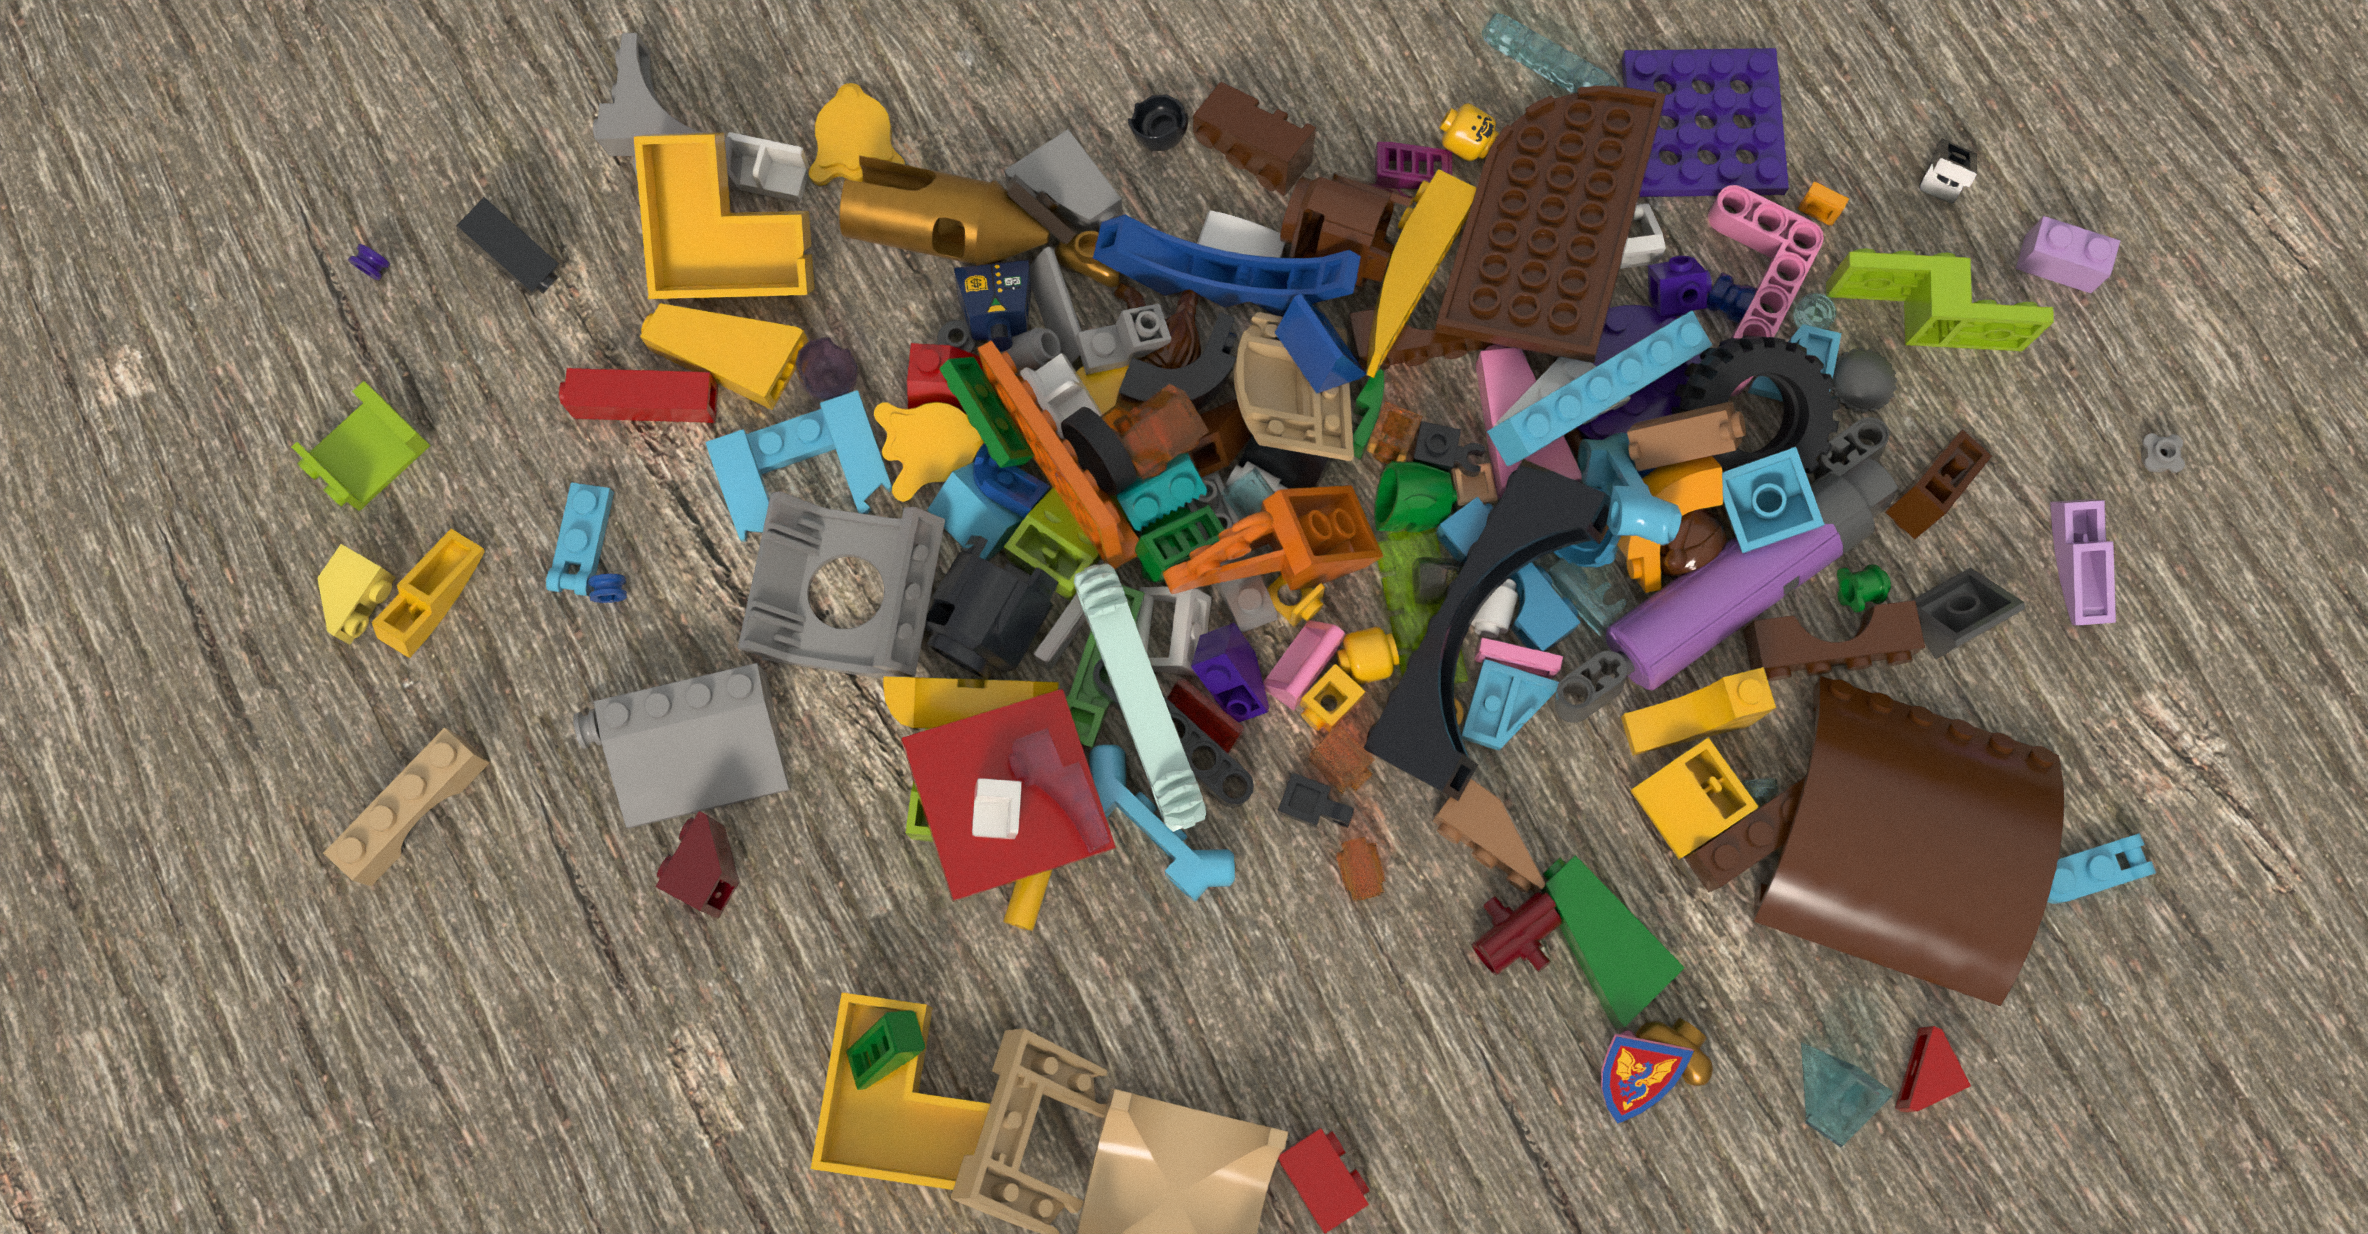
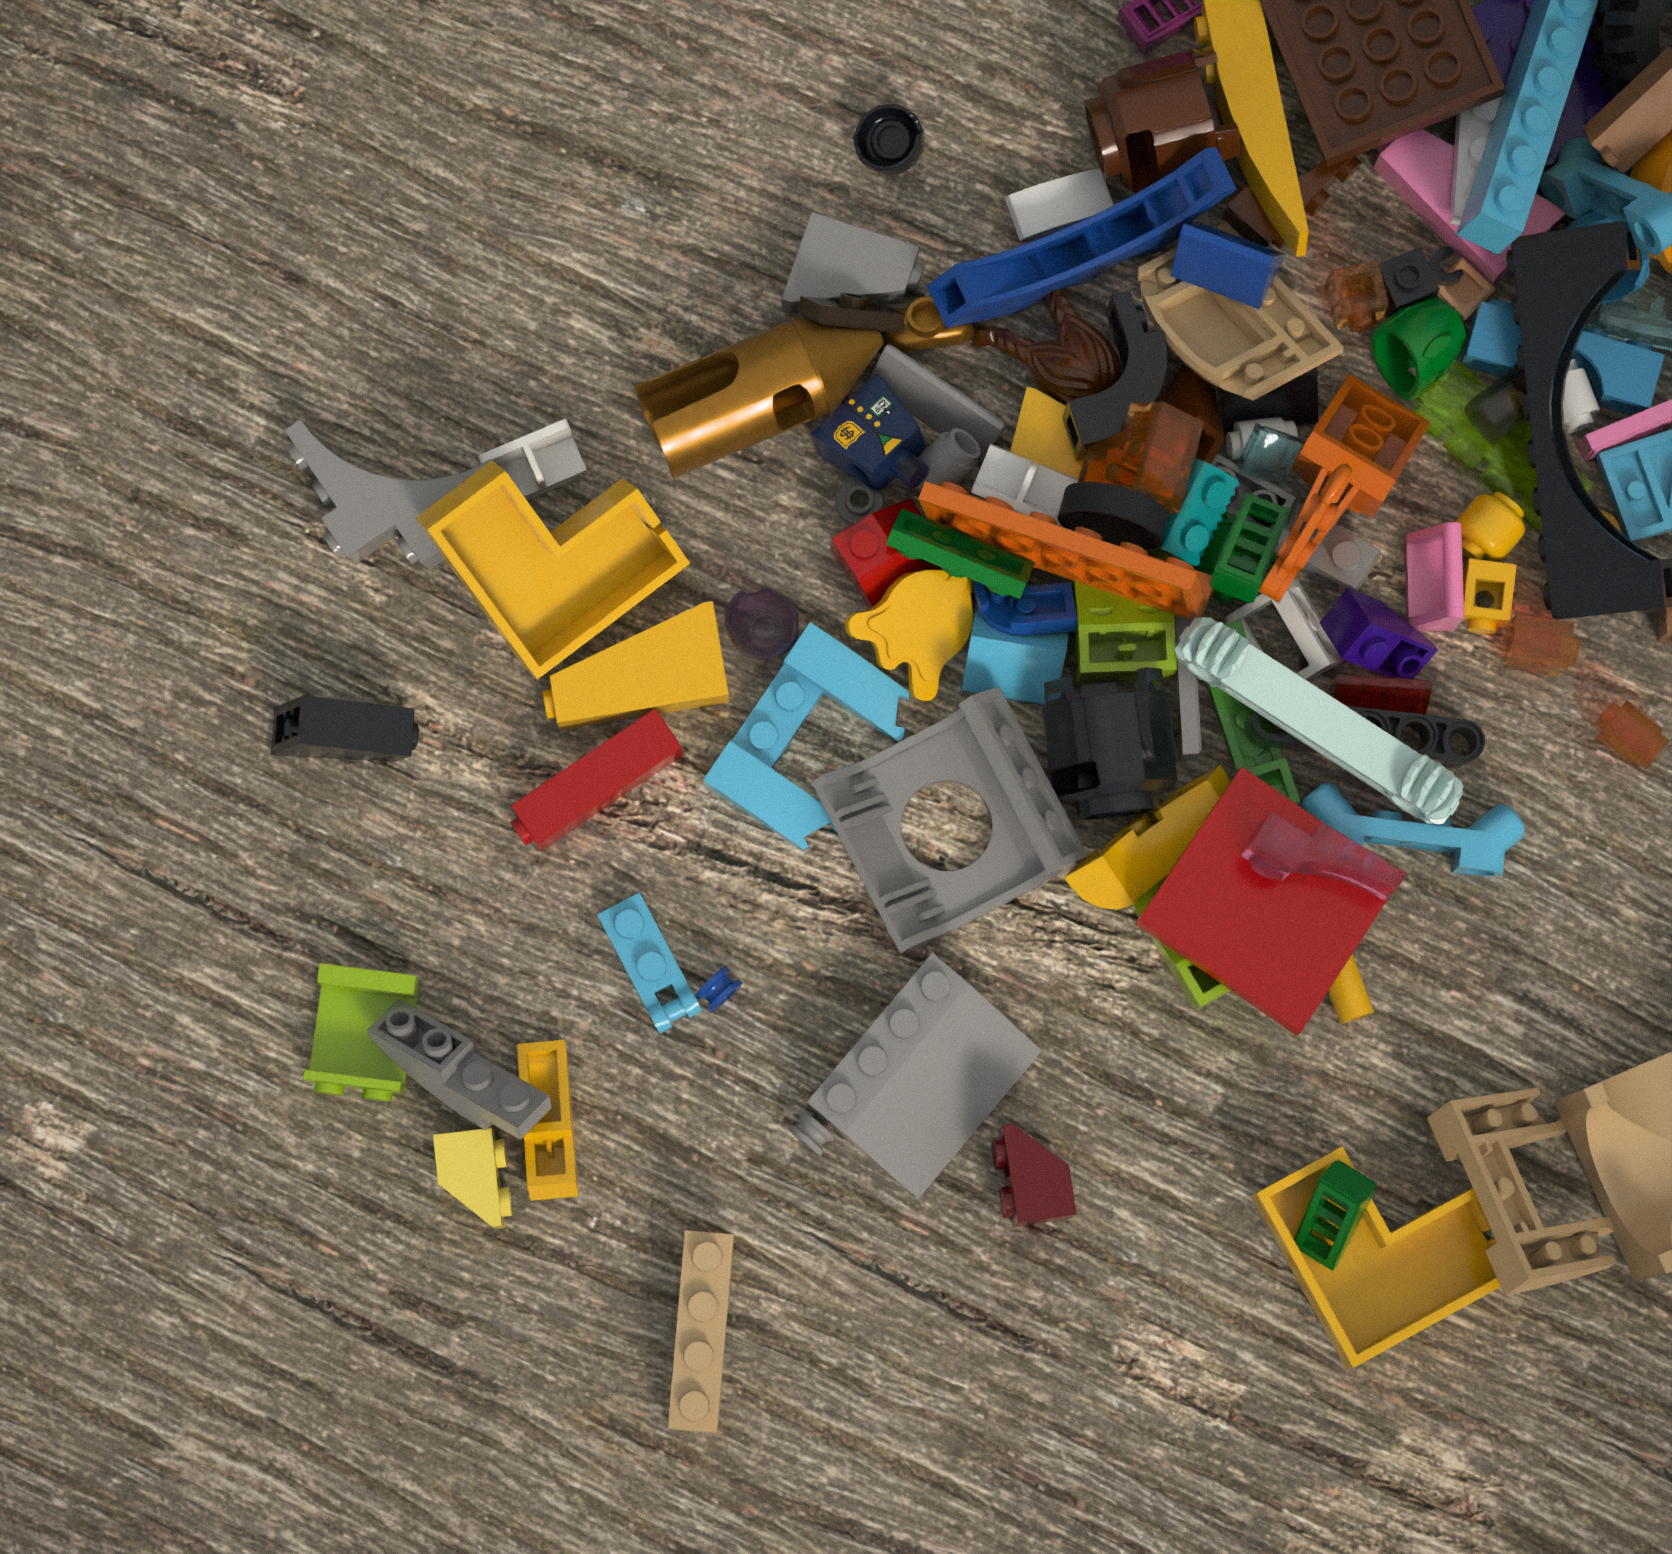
camera: 40 degrees left, 5 degrees up
(369, 262) = (211, 844): dark purple bush -> none
(391, 514) = (455, 1074): none -> light grey slope
(848, 128) = (590, 368): yellow tile -> none
(996, 808) = (1278, 920): white panel -> none
(1134, 335) = (1038, 388): light grey slope -> none
(1254, 138) = (995, 90): reddish brown wedge -> none
(1306, 608) = (1394, 519): yellow bracket -> none
(1308, 802) = (1536, 707): black plate -> none
(1368, 406) = (1310, 282): green slope -> none

